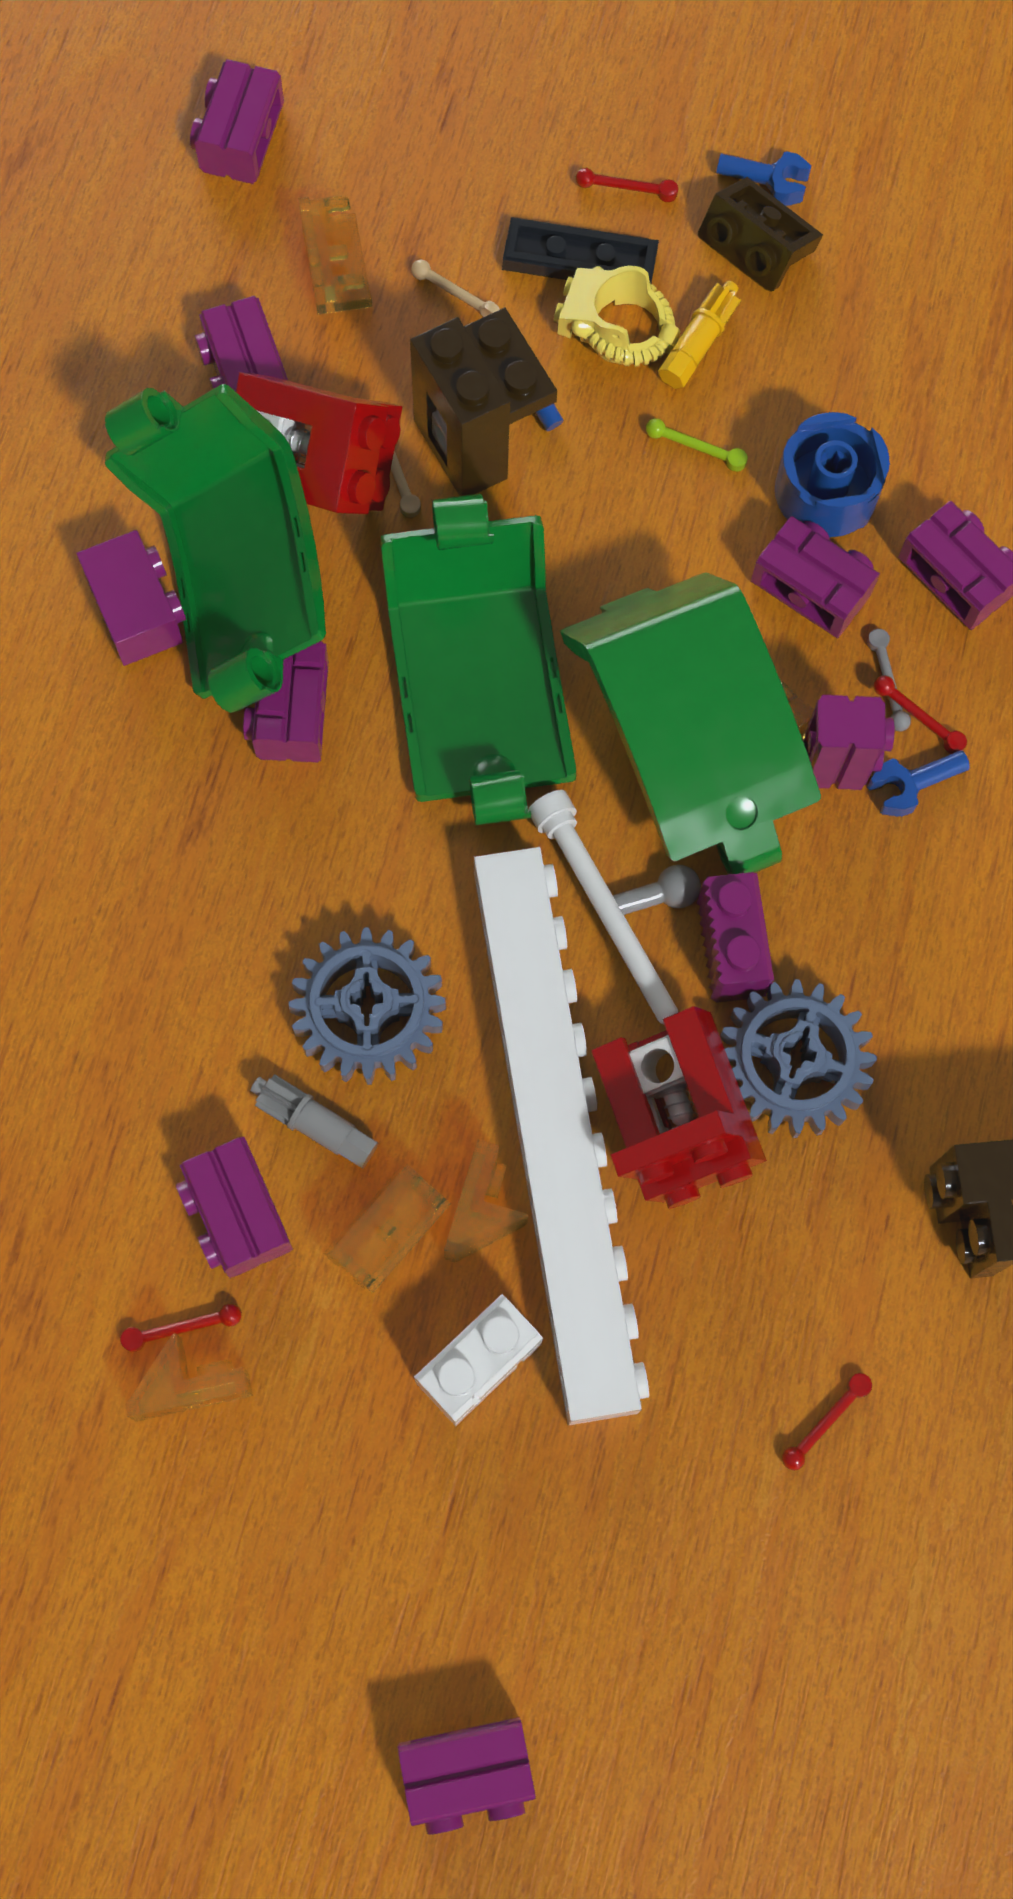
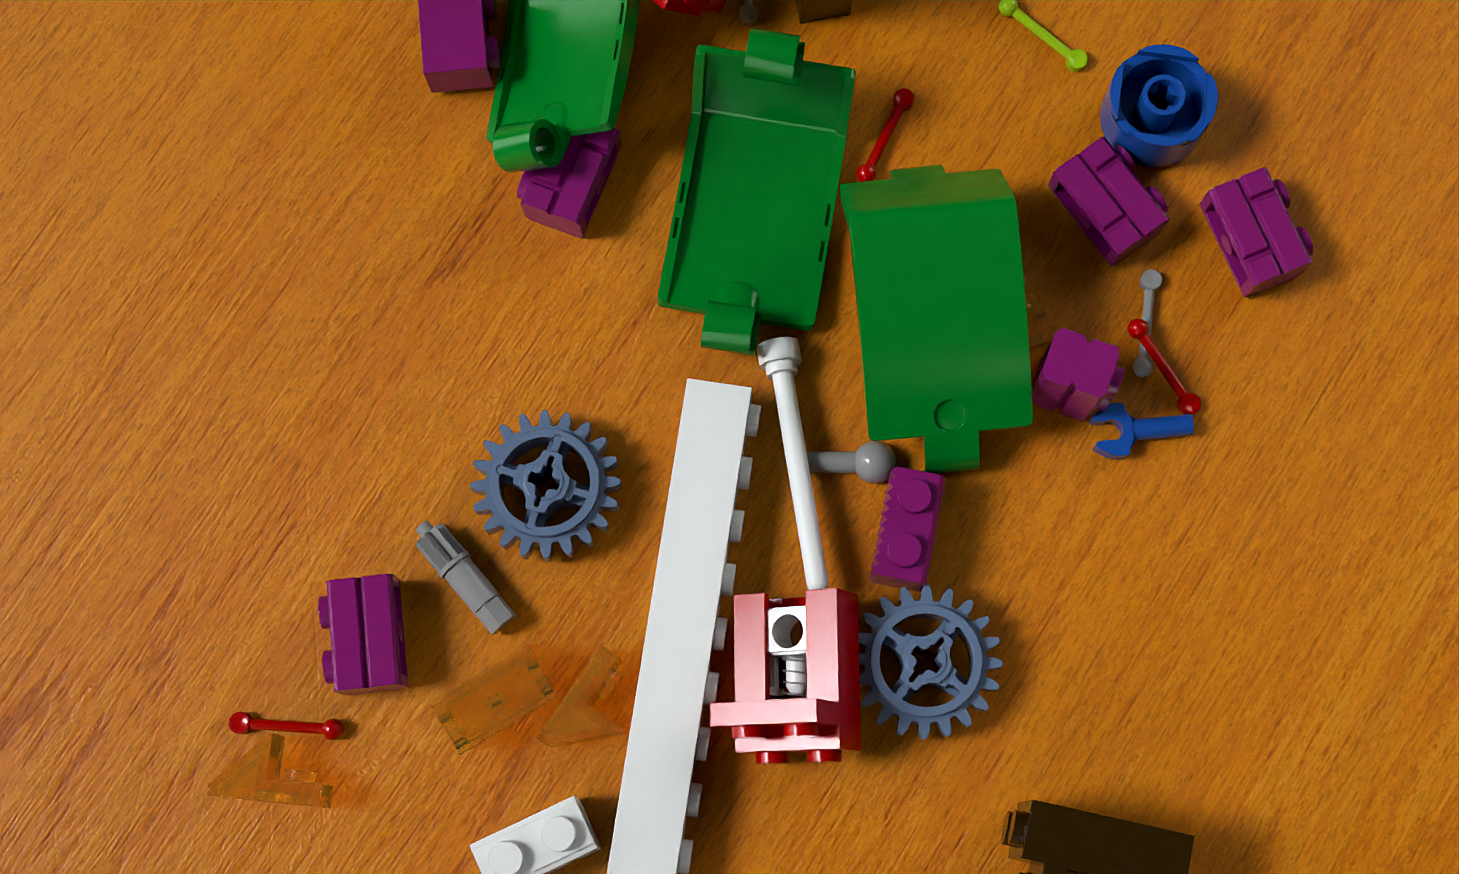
camera: 25 degrees right, 5 degrees up
(585, 543) = (902, 101): none -> red hinge

